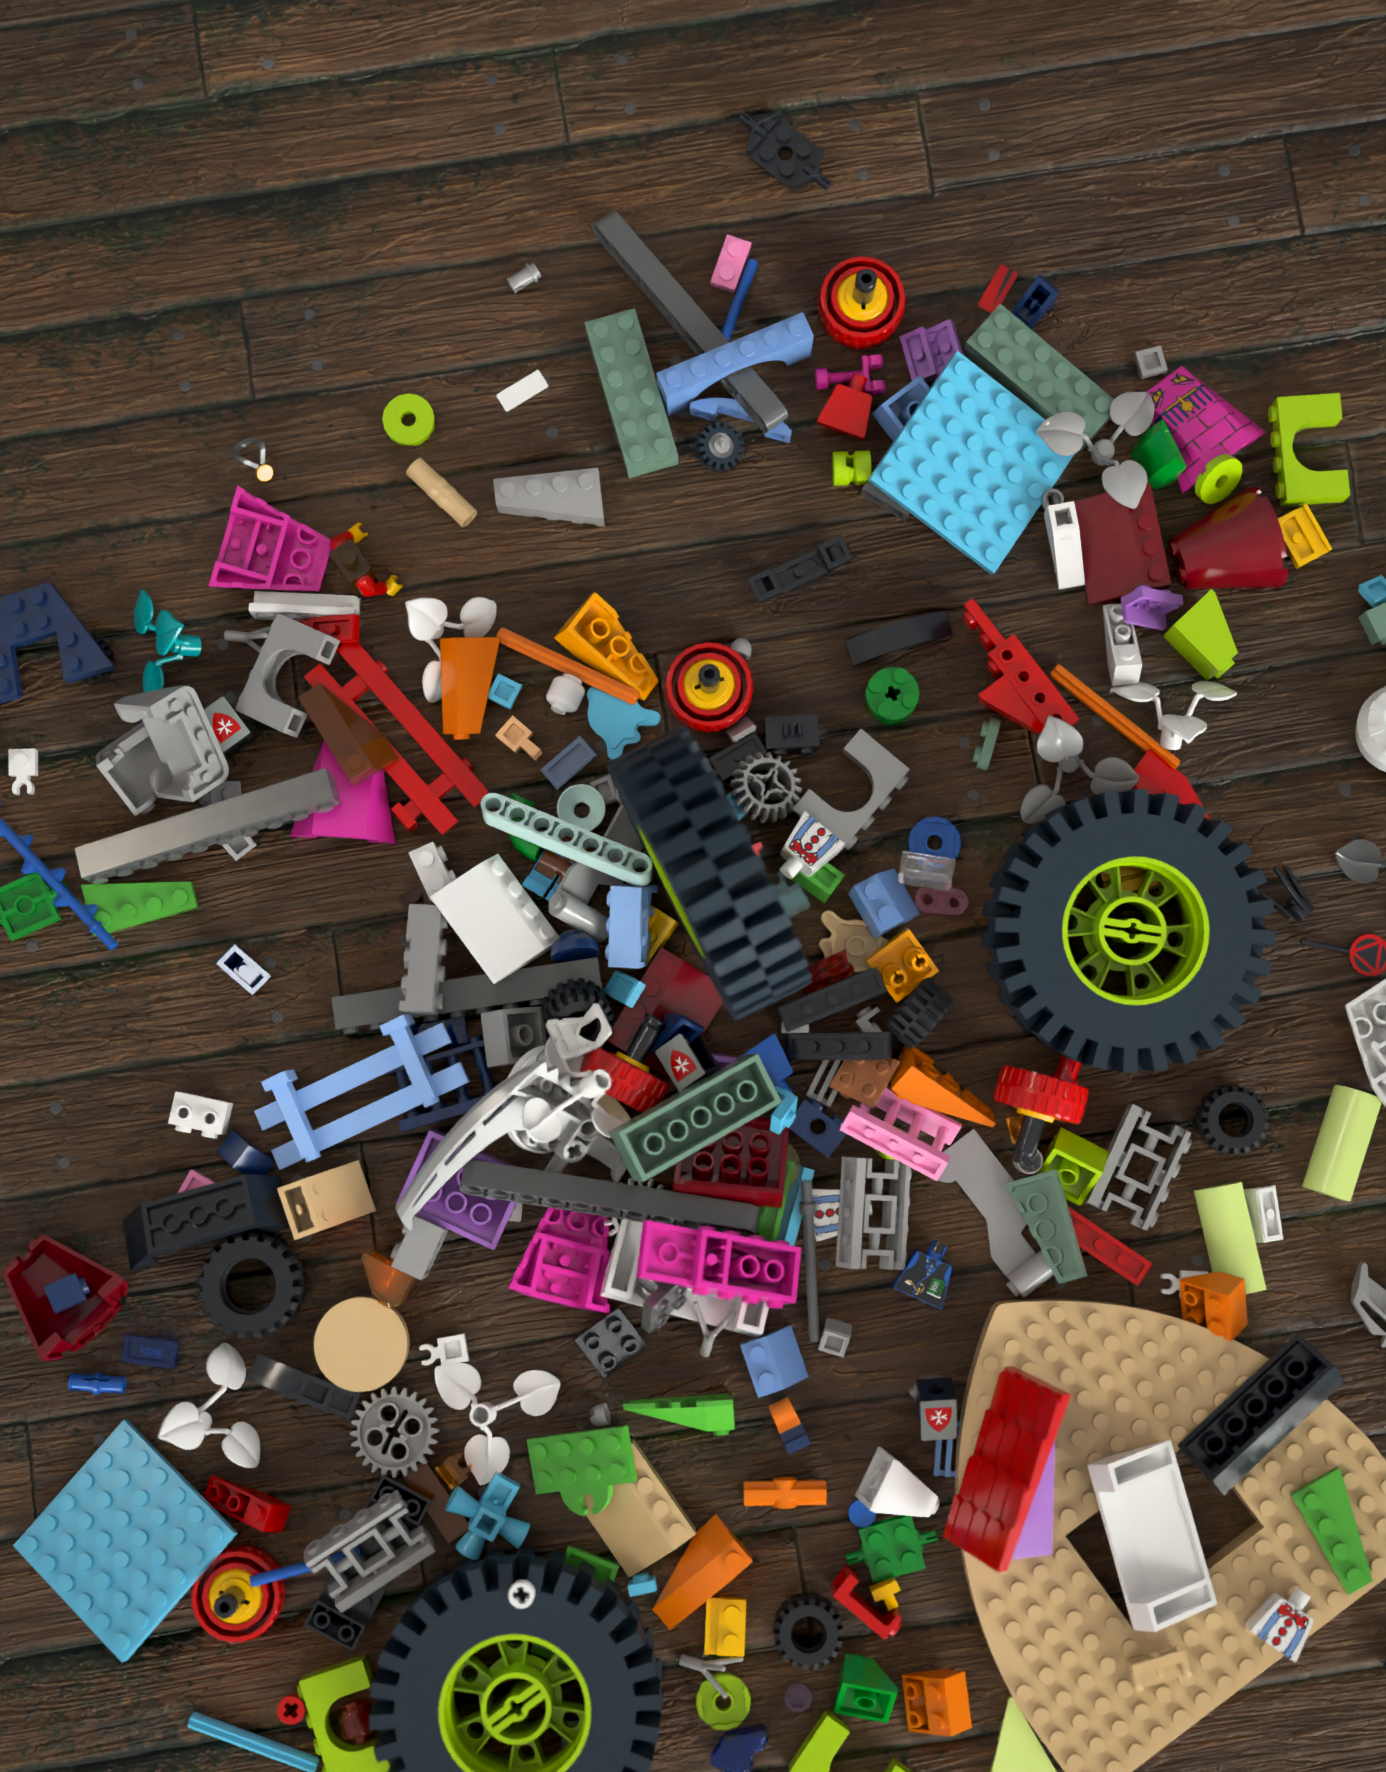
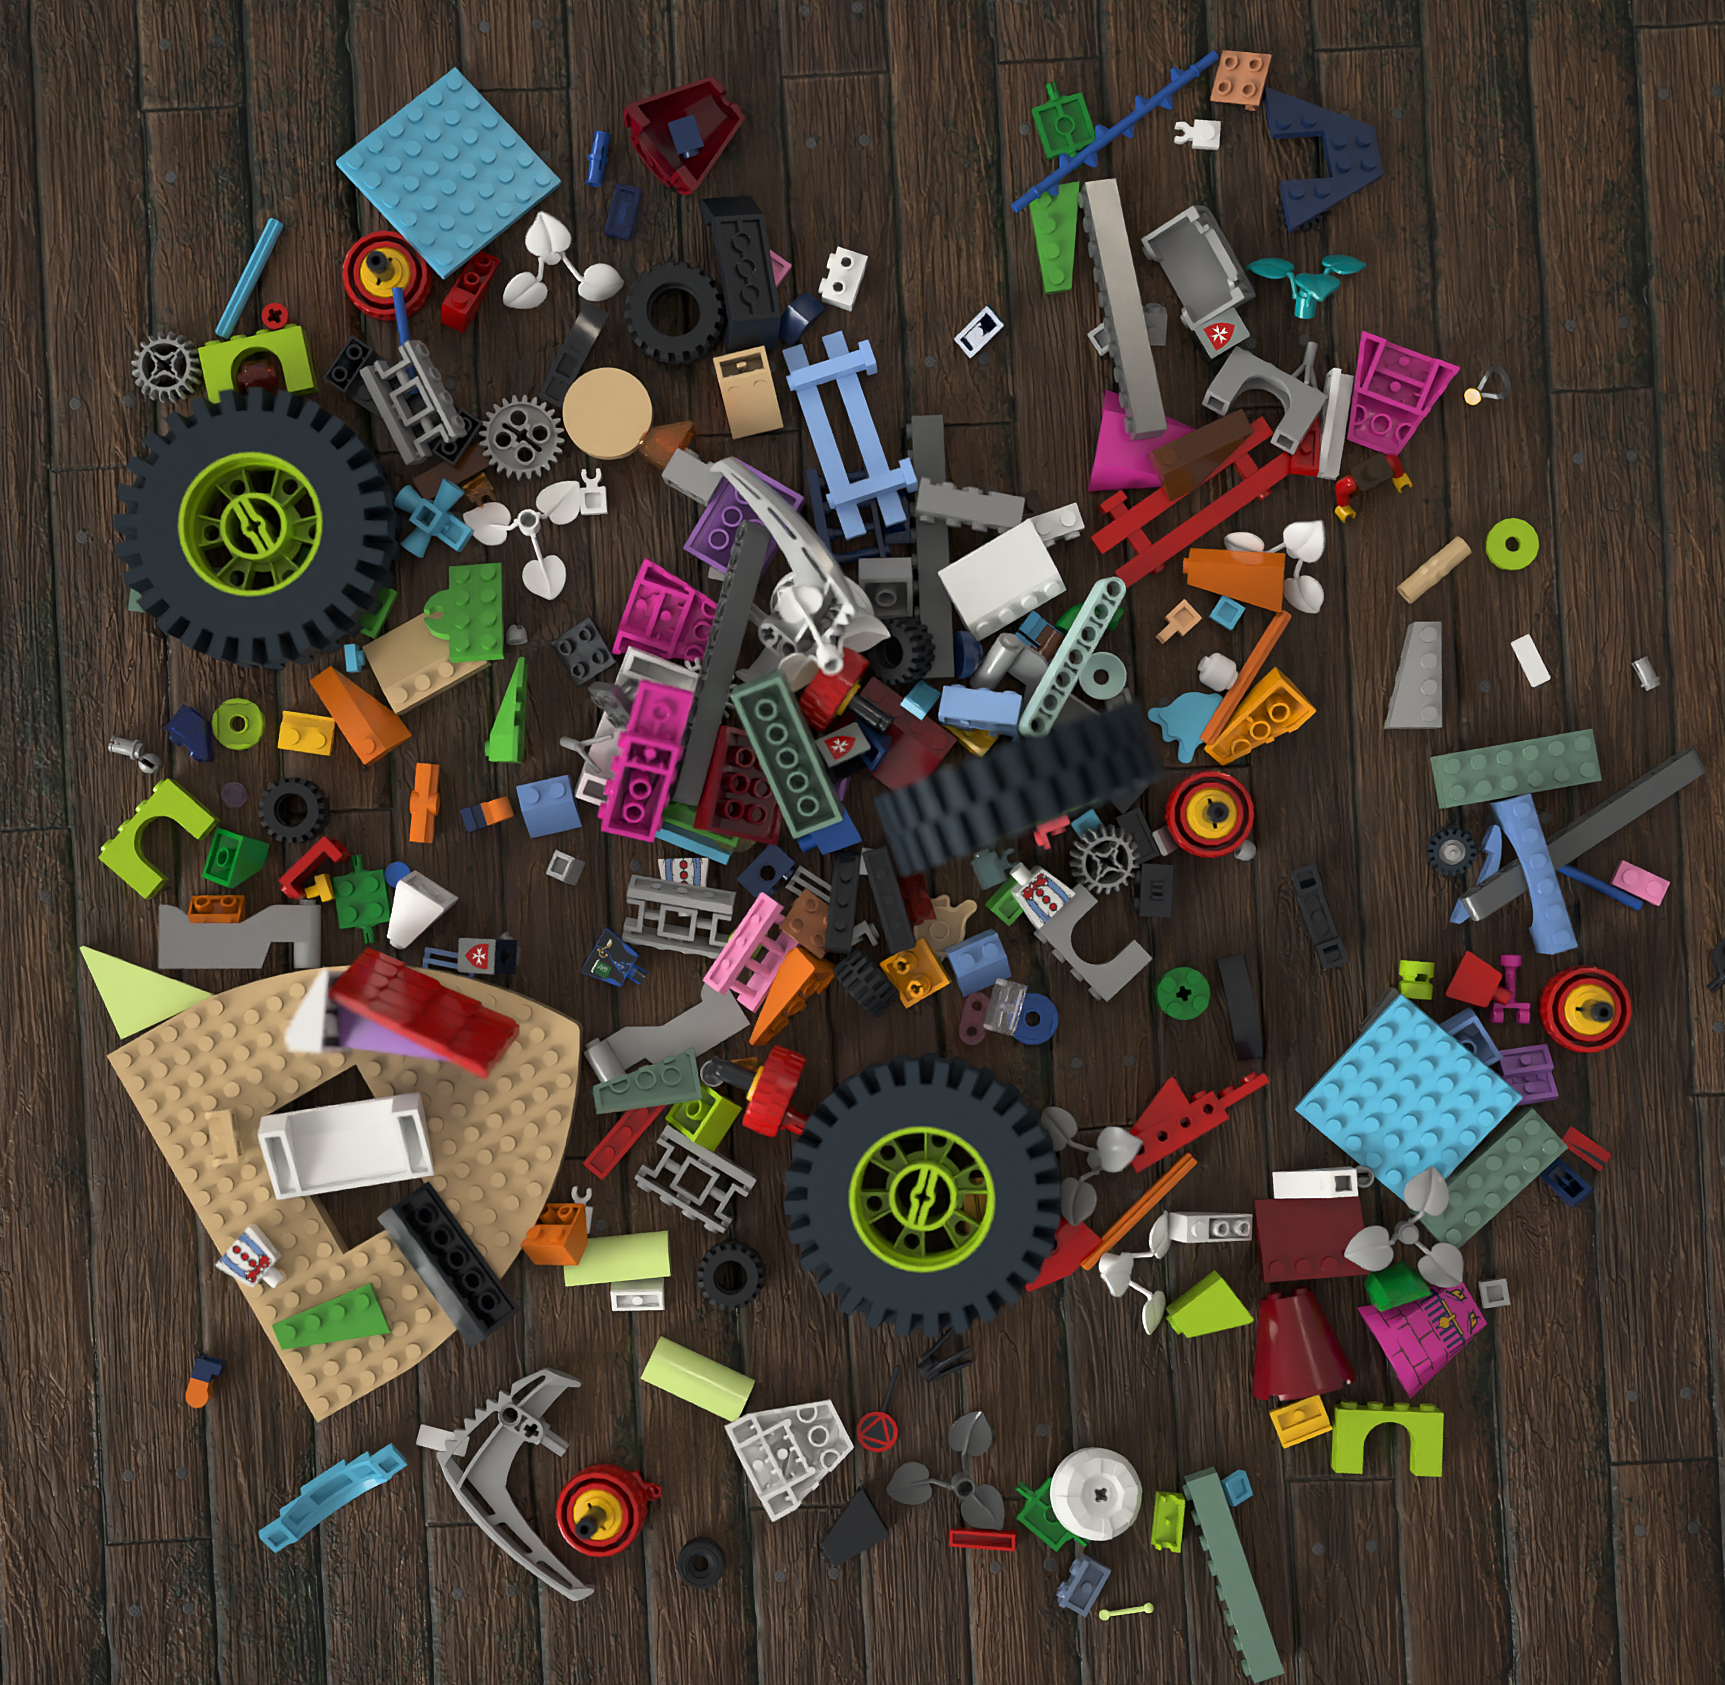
camera: 90 degrees right, 5 degrees up
(182, 740) = (1211, 292): light grey windscreen -> none
(527, 1587) = (363, 547): white bush -> none
(567, 1035) = (877, 638): white piece -> none
(568, 763) = (1149, 668): sand blue tile -> none
(702, 1666) = (272, 708): light grey plant -> none
(785, 1111) = (784, 842): medium azure bracket -> none
(808, 1209) = (689, 853): dark grey bar -> none
(955, 1671) = (239, 944): none -> light grey door
(983, 754) = (1136, 1085): sand green plate -> none
(1031, 1580) = (317, 1020): none -> white slope
(1148, 606) = (1243, 1258): medium lavender bracket -> none
(1212, 489) = (1358, 1335): lime tile -> none

